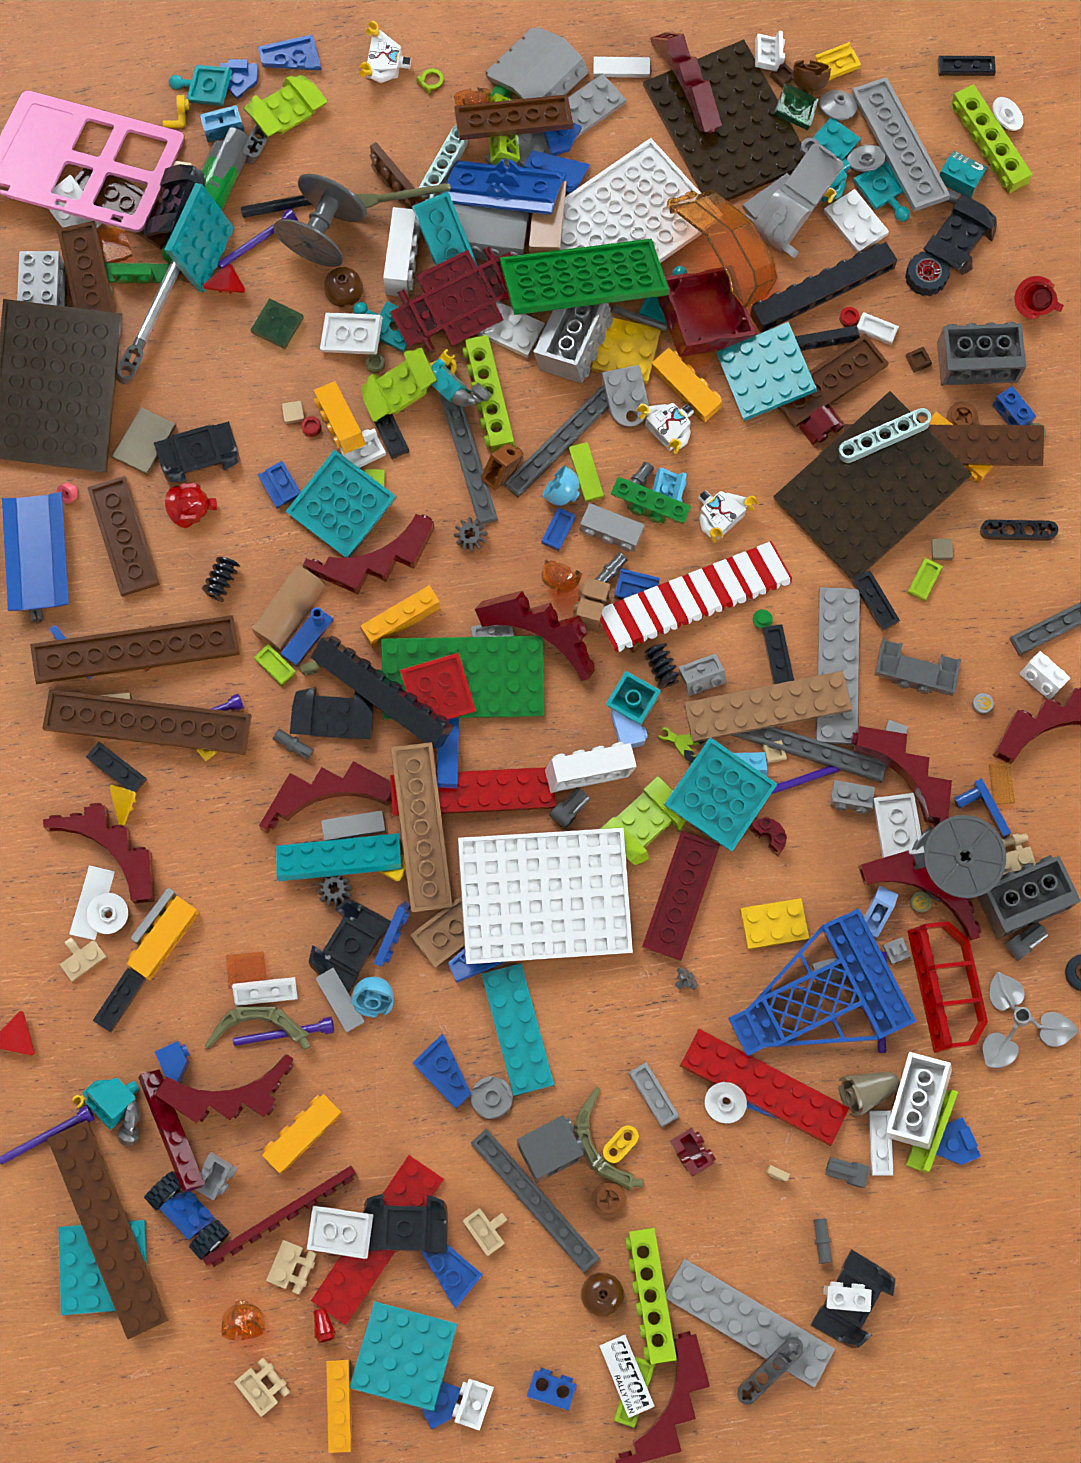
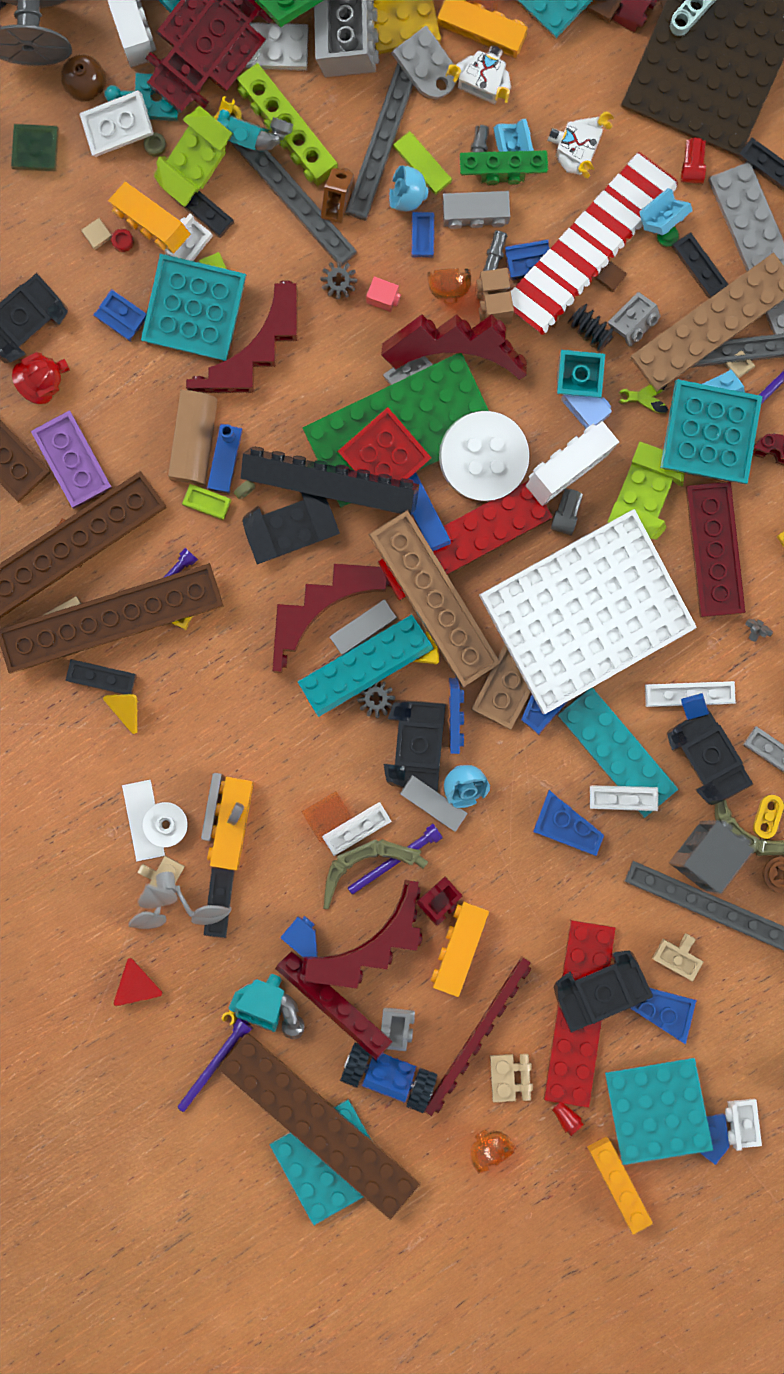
camera: 25 degrees left, 10 degrees up
(65, 963) = (164, 895): none -> light grey plant
(95, 825) = (108, 744): dark red arch -> none
(168, 929) = (235, 814): none -> flat silver tile
(181, 581) = (71, 459): none -> medium lavender plate
(219, 577) = (108, 438): black piece -> none
(257, 1392) = (534, 1208): tan plate -> none
(293, 744) = (264, 573): dark grey pin -> none
(304, 1084) = (439, 900): none -> dark red cylinder
(340, 1232) = (543, 1024): white plate -> none
(400, 616) = (309, 396): light orange brick -> none
(491, 1097) = (624, 829): light grey tile -> none
(501, 562) = (383, 294): none -> coral brick
(503, 1069) = (624, 798): none -> white tile
(521, 729) = (484, 455): none -> white brick
(593, 1070) = (710, 757): none -> black piece
(600, 1019) = (694, 706): none -> blue tile
(602, 1008) = (671, 694): none -> white tile
(699, 631) = (611, 276): none -> reddish brown tile
(766, 598) = (664, 213): none -> medium azure bracket
(811, 571) = (694, 168): none -> red piece

